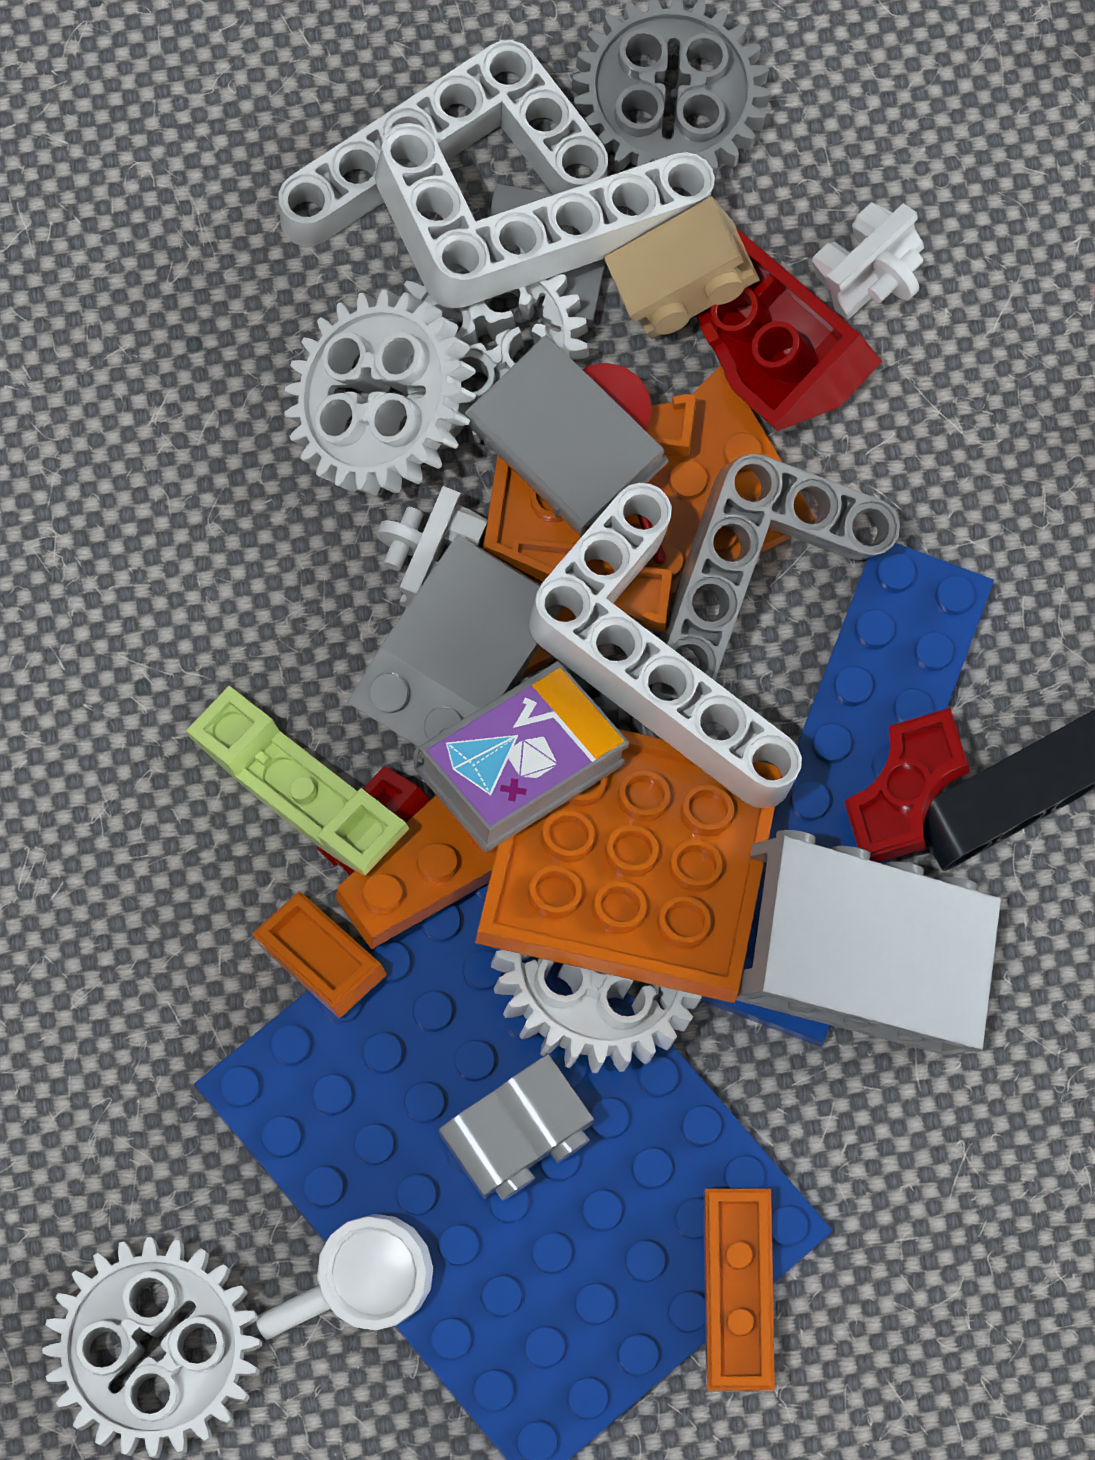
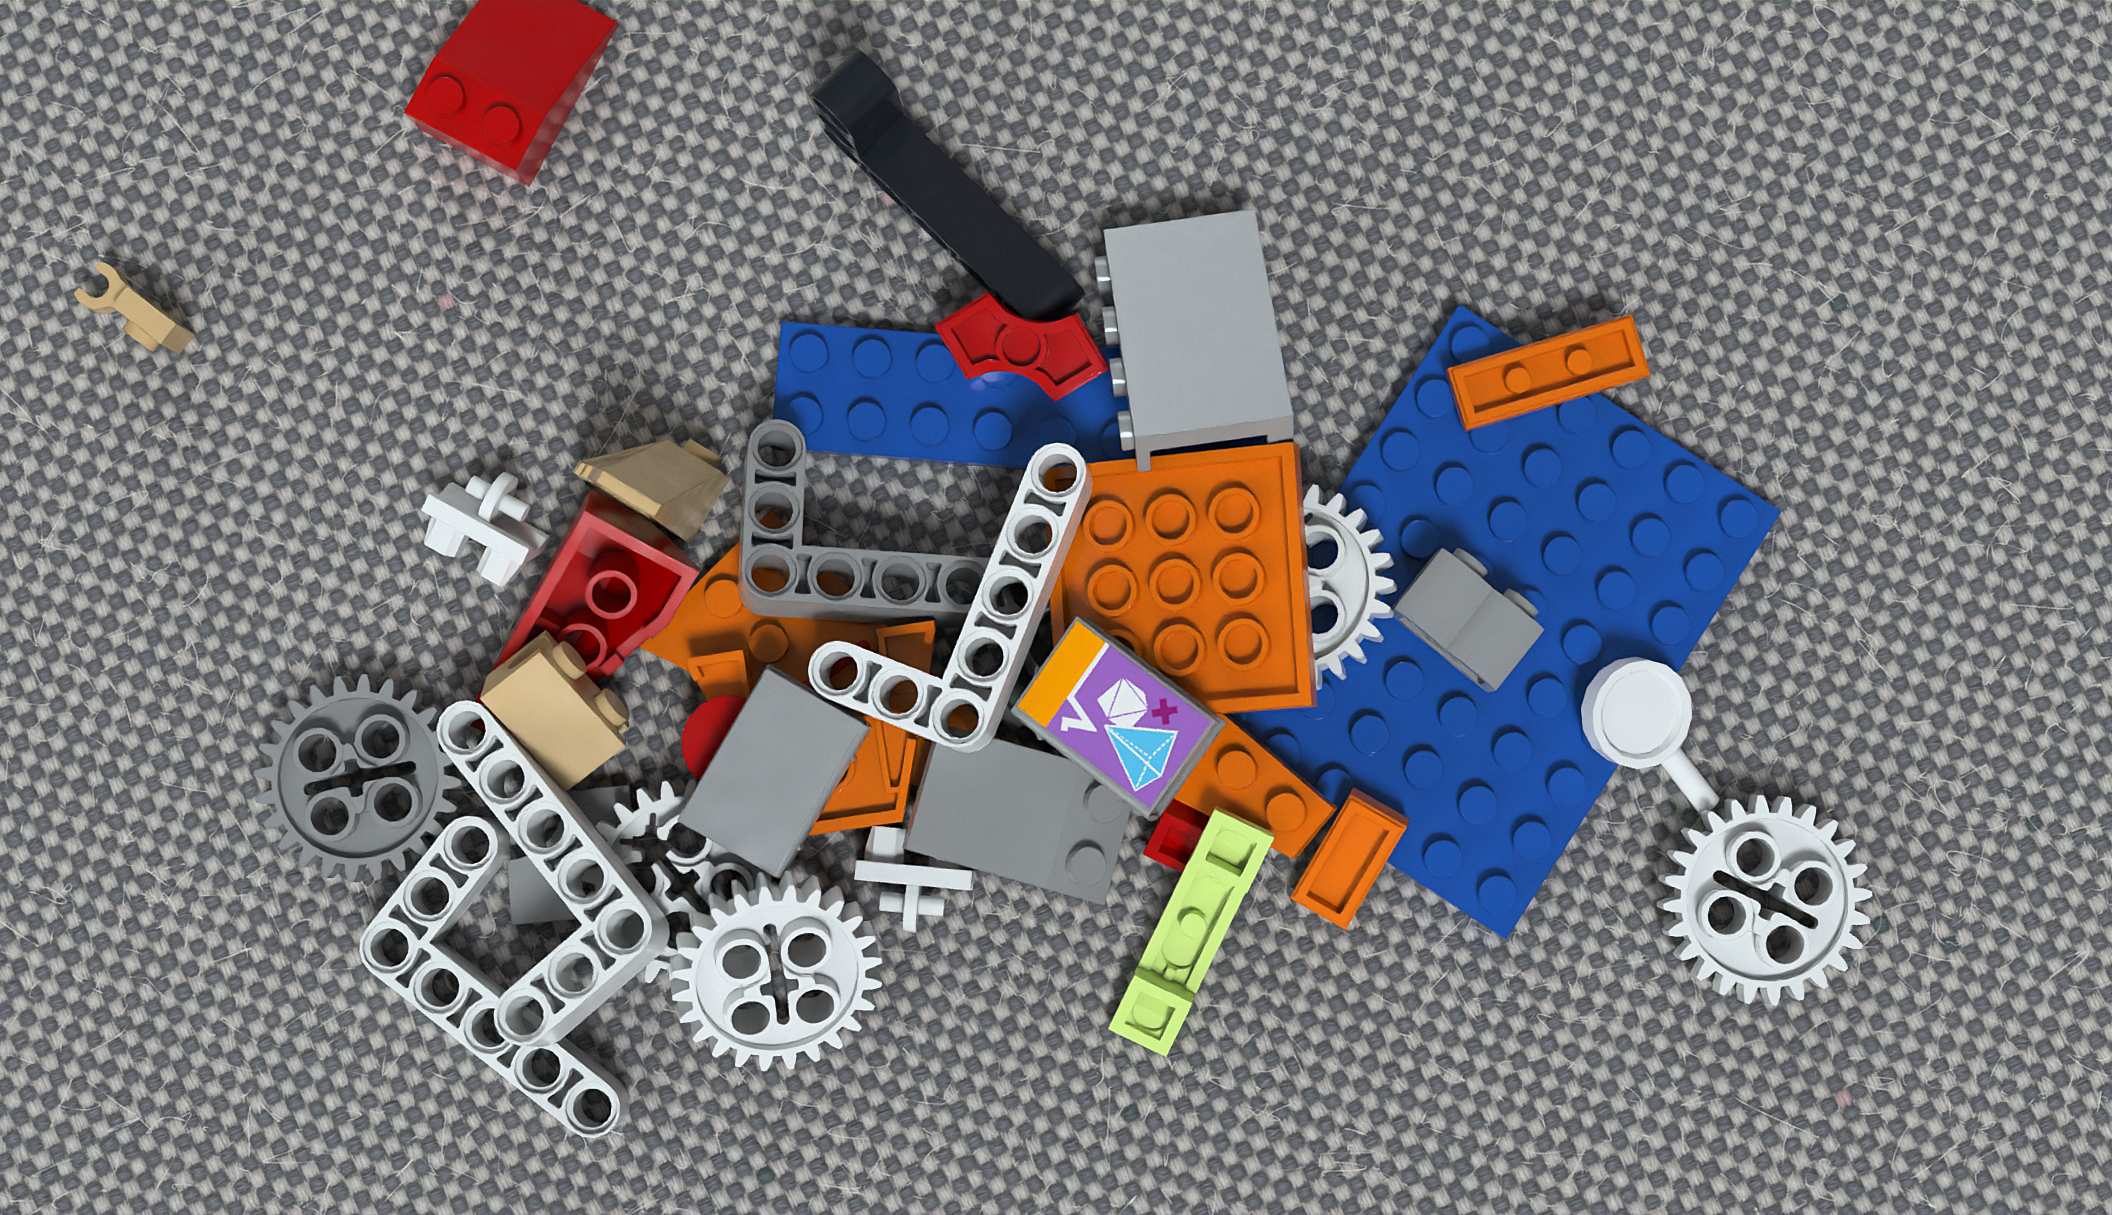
camera: 90 degrees left, 10 degrees up
(864, 409) = (660, 482): none -> tan wedge

